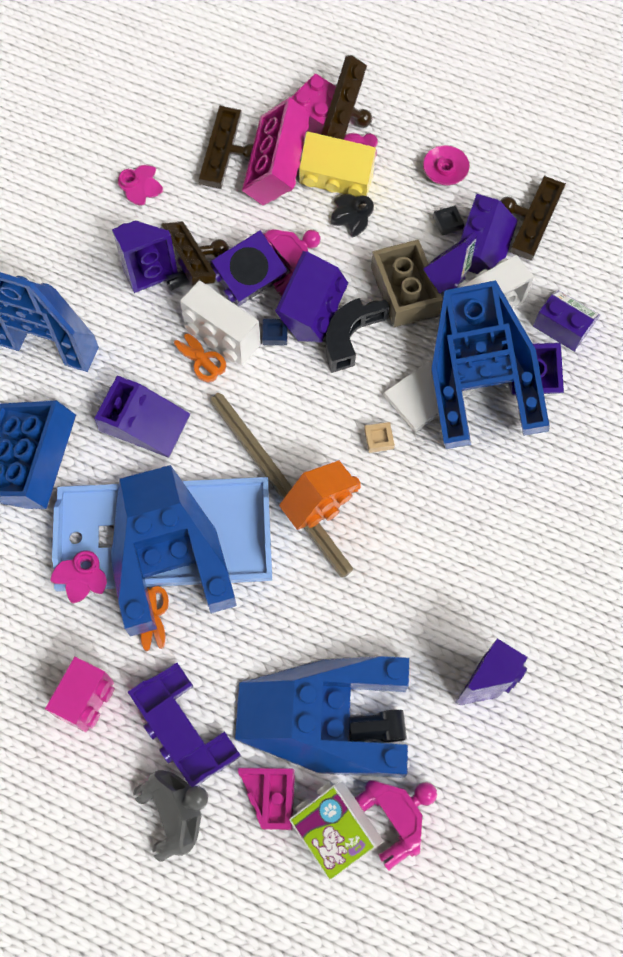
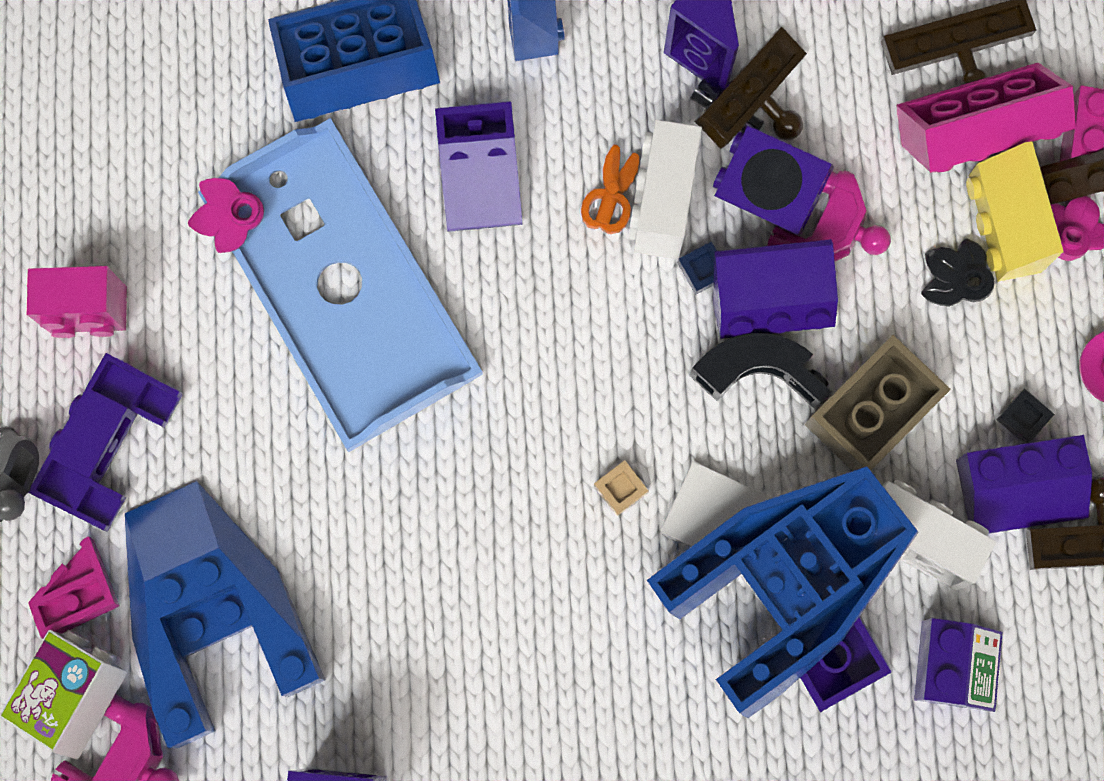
camera: 65 degrees right, 10 degrees up
(159, 633) = (217, 334): orange piece -> none
(161, 531) = (331, 277): blue wedge -> none
(278, 480) = (485, 393): dark tan axle -> none
(319, 495) = (482, 453): orange brick -> none
(385, 726) = (225, 692): black piece -> none
(452, 265) = (931, 456): dark purple slope -> none

